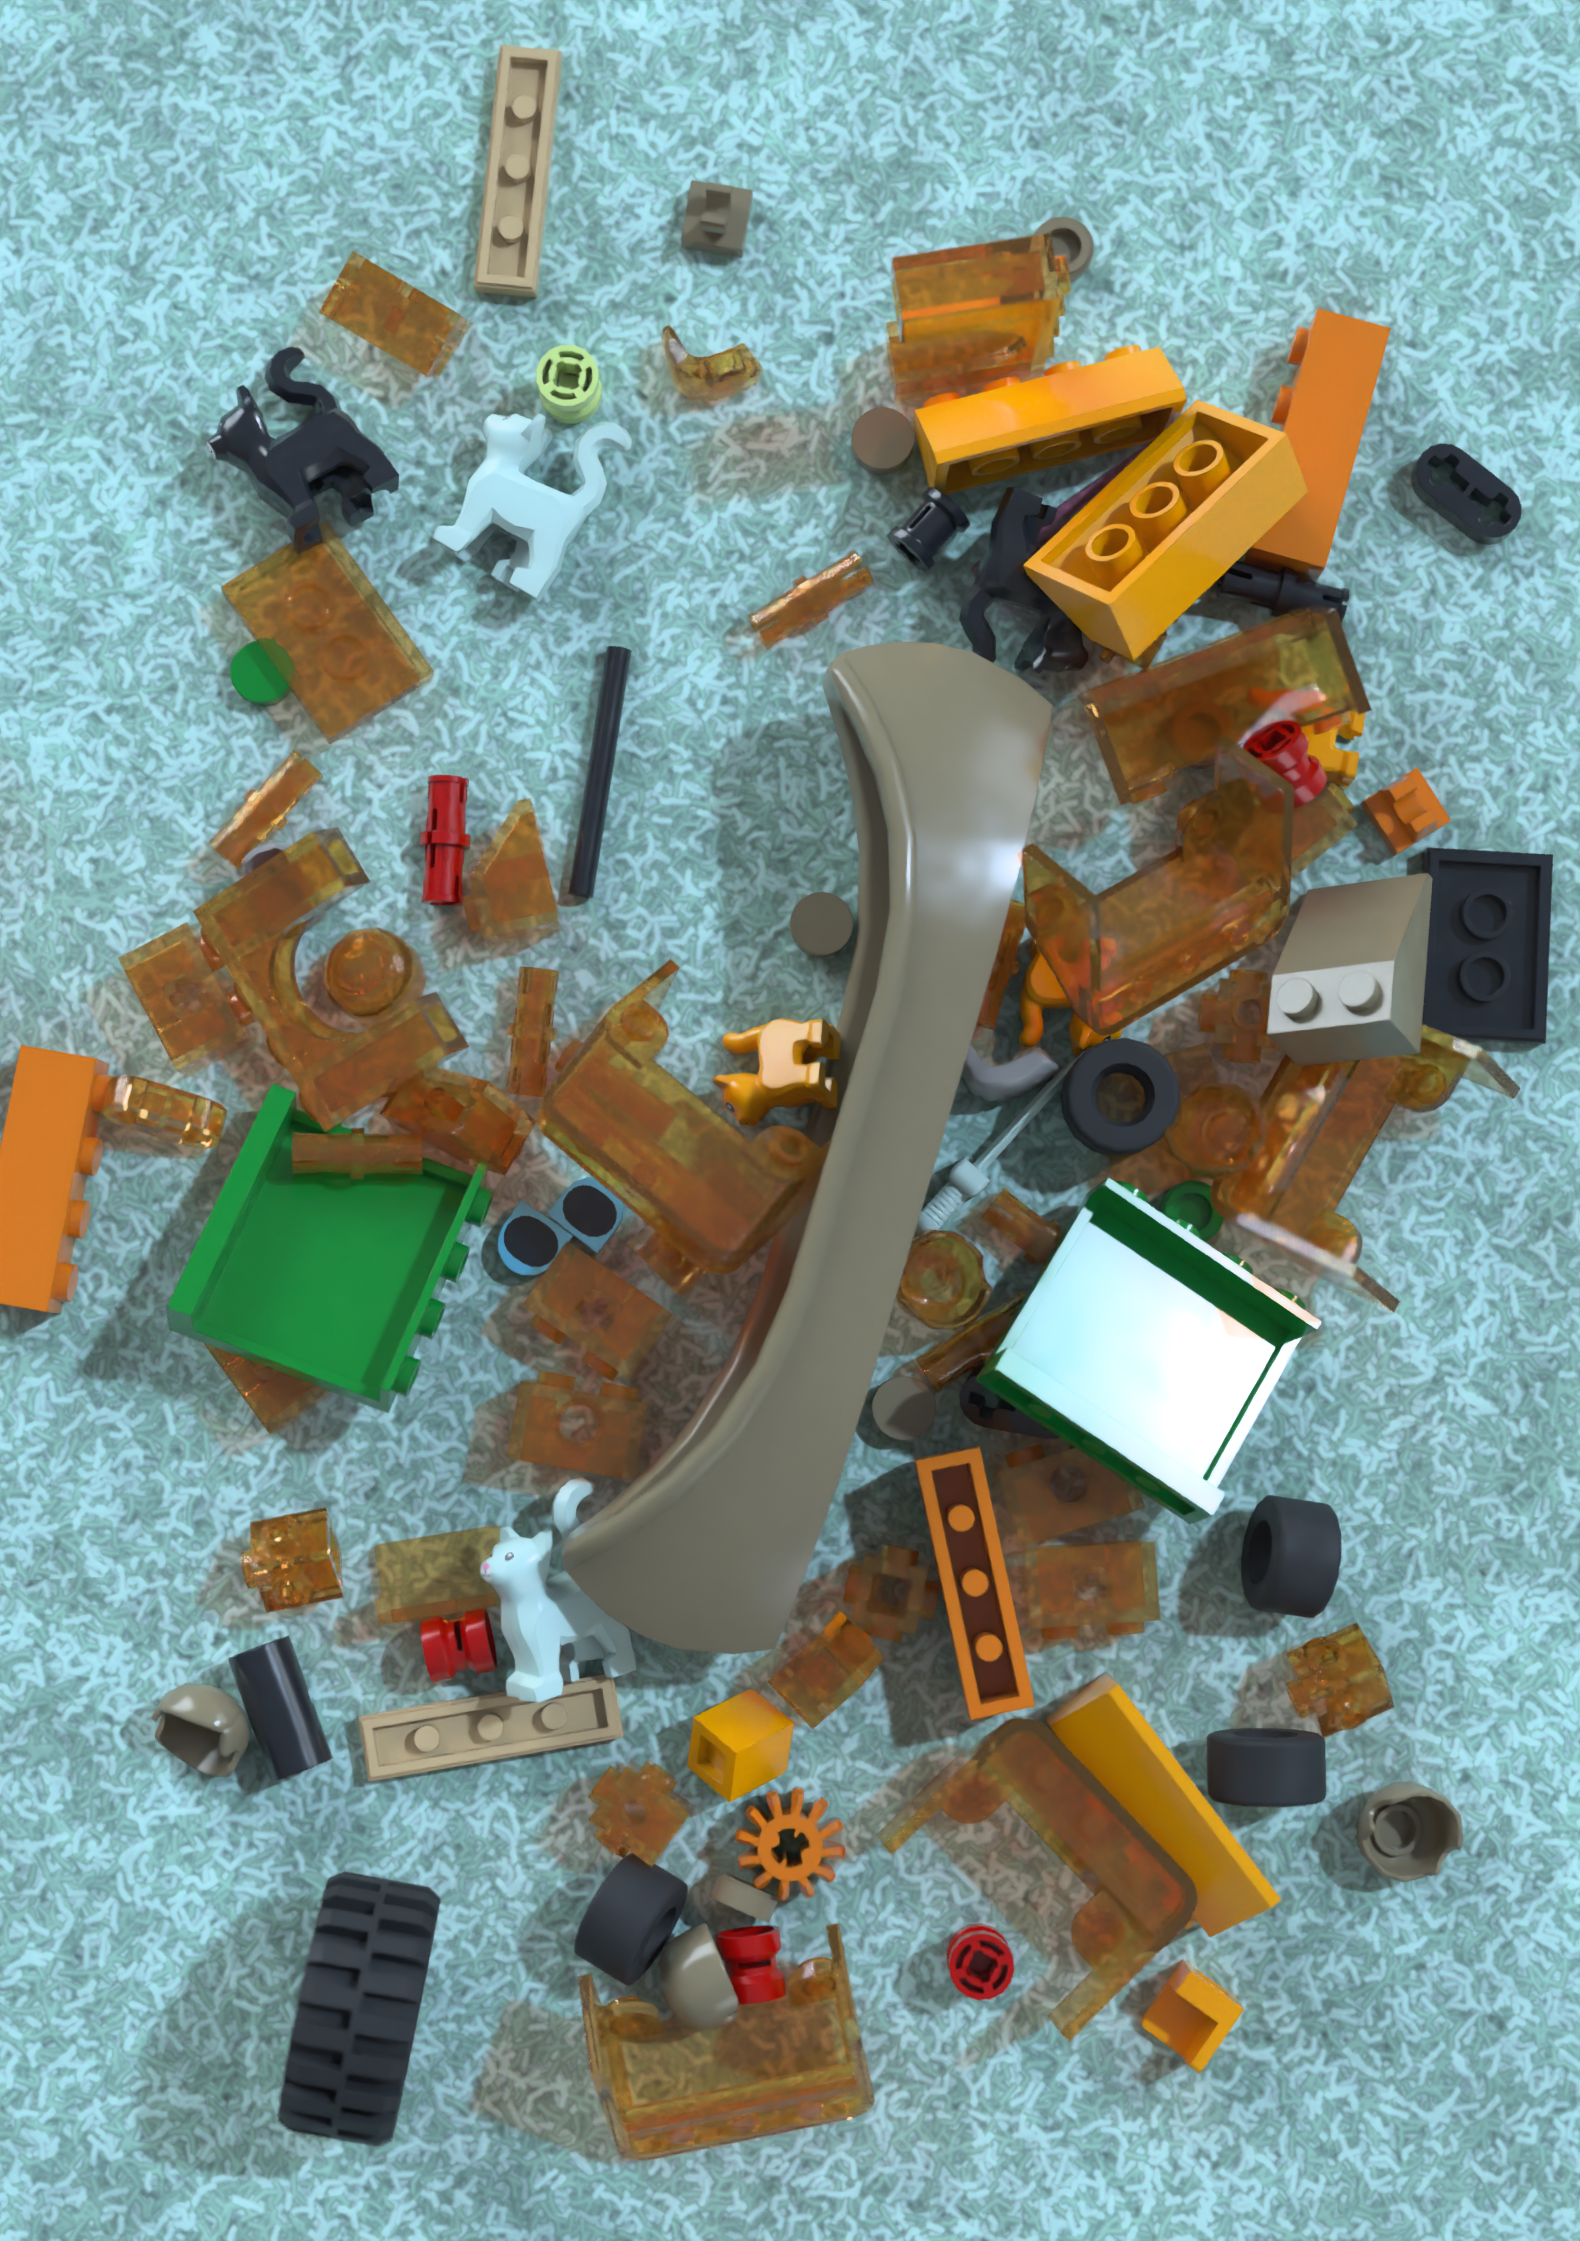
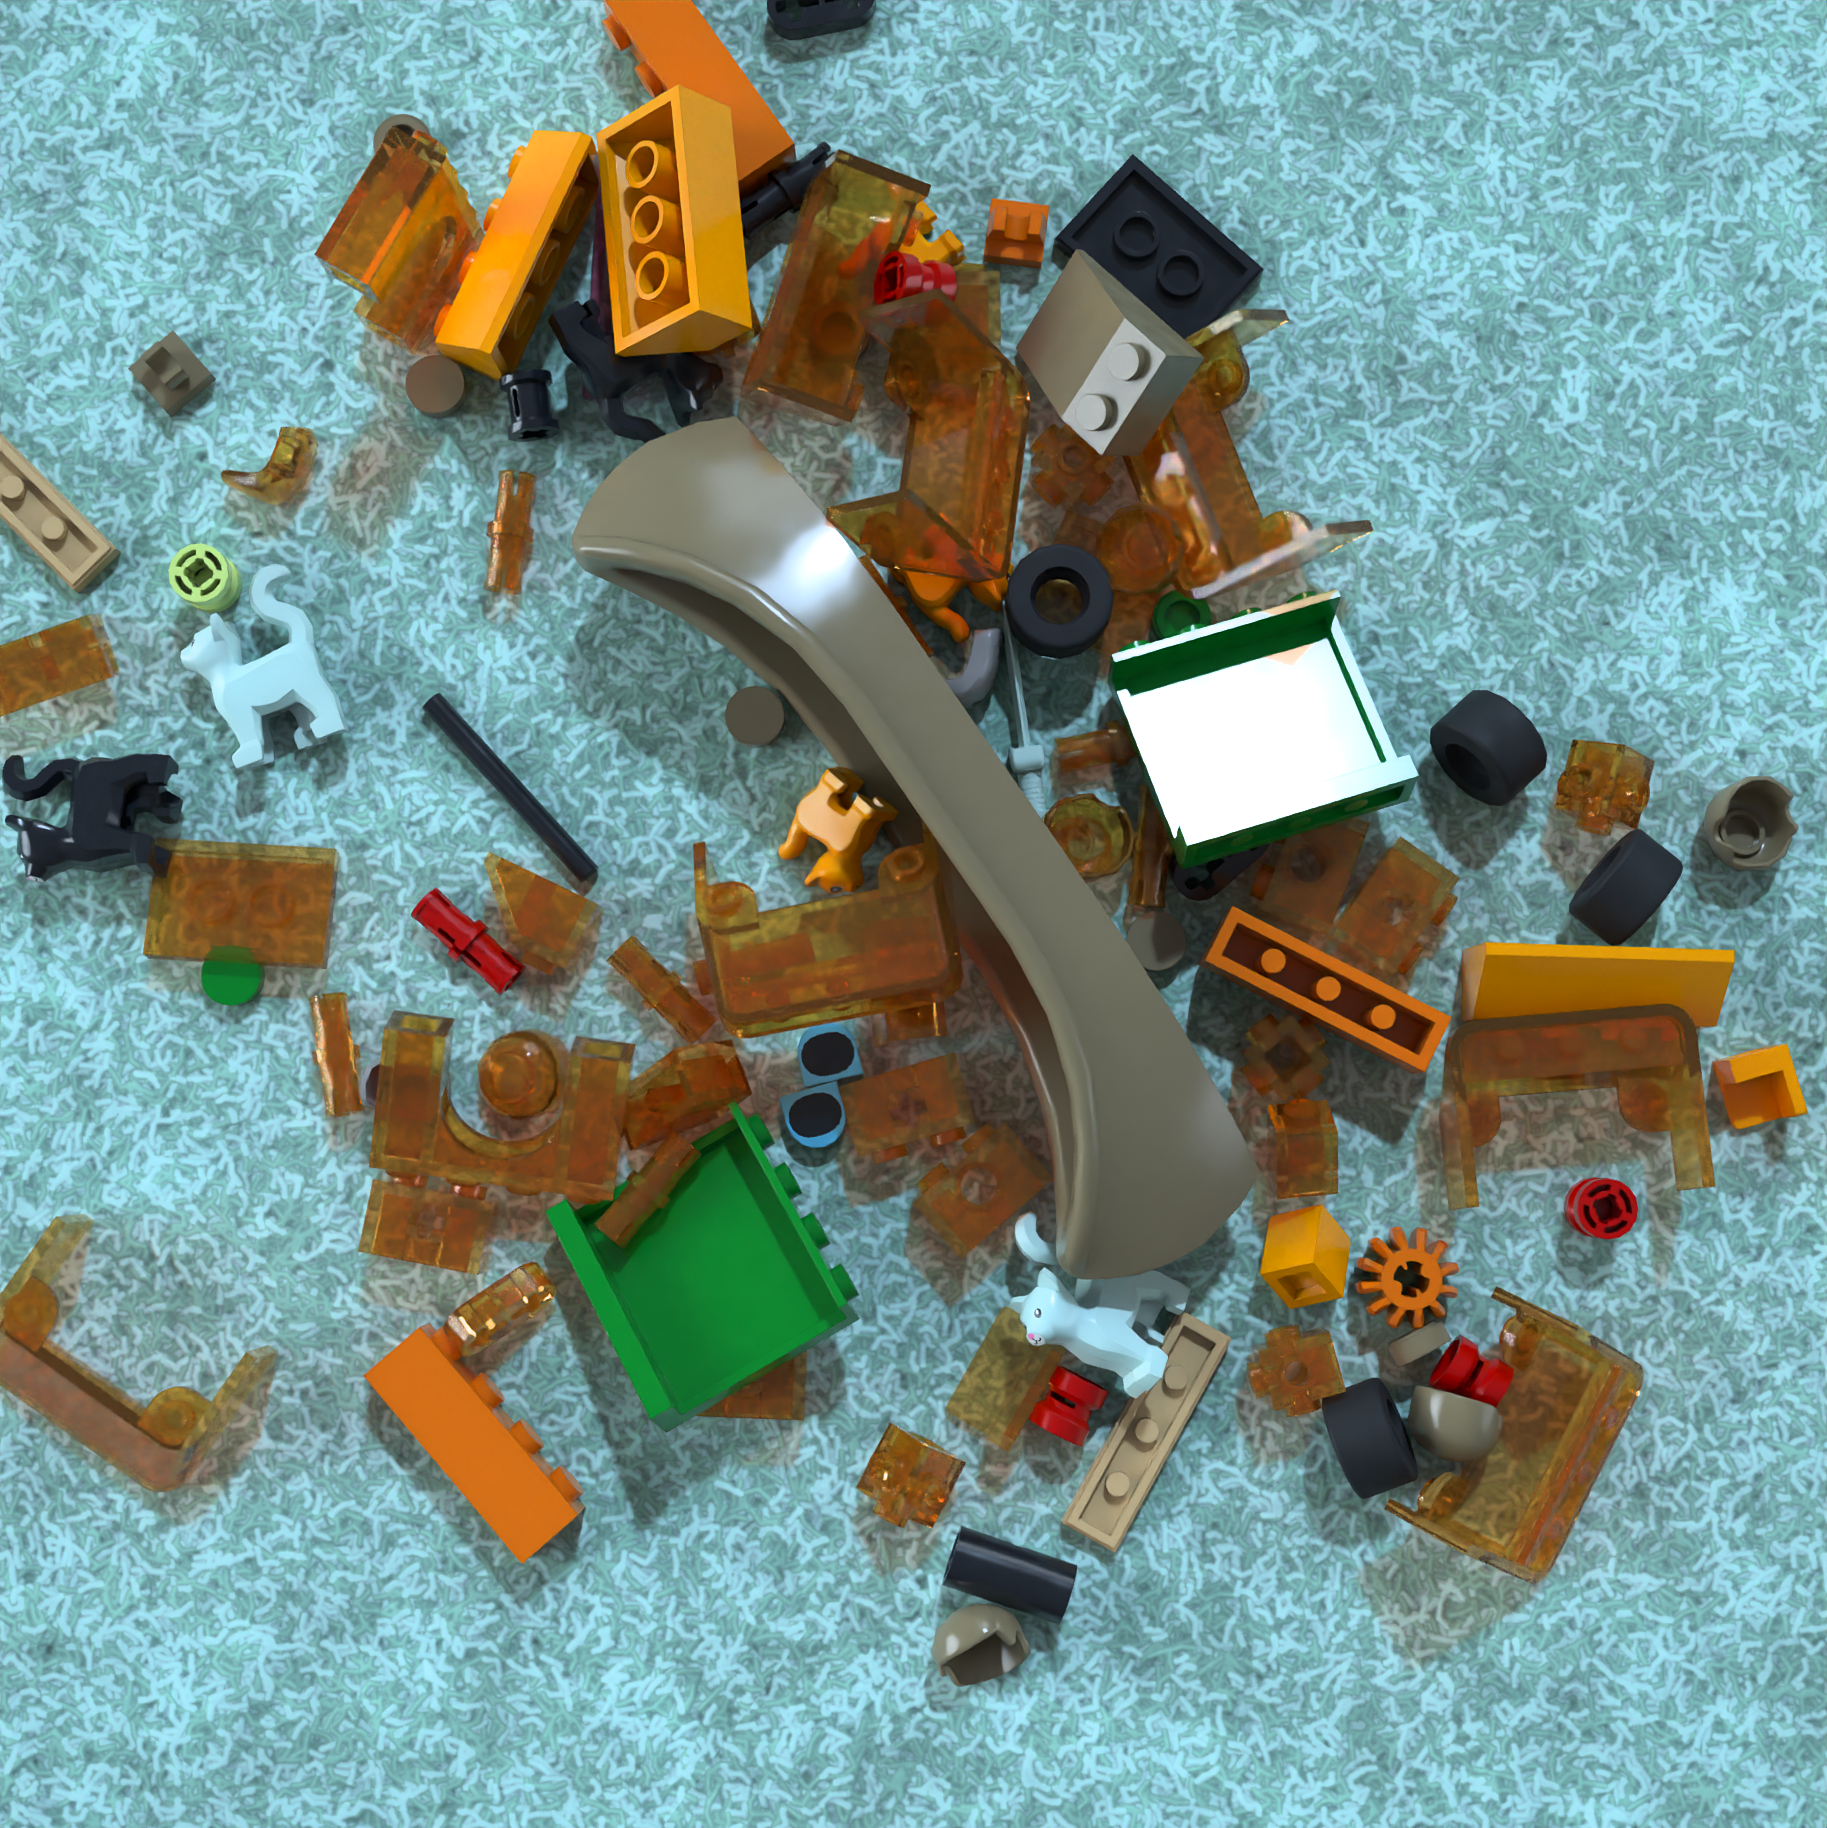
camera: 50 degrees left, 0 degrees up
(358, 2009) = (1284, 1689): black tyre -> none

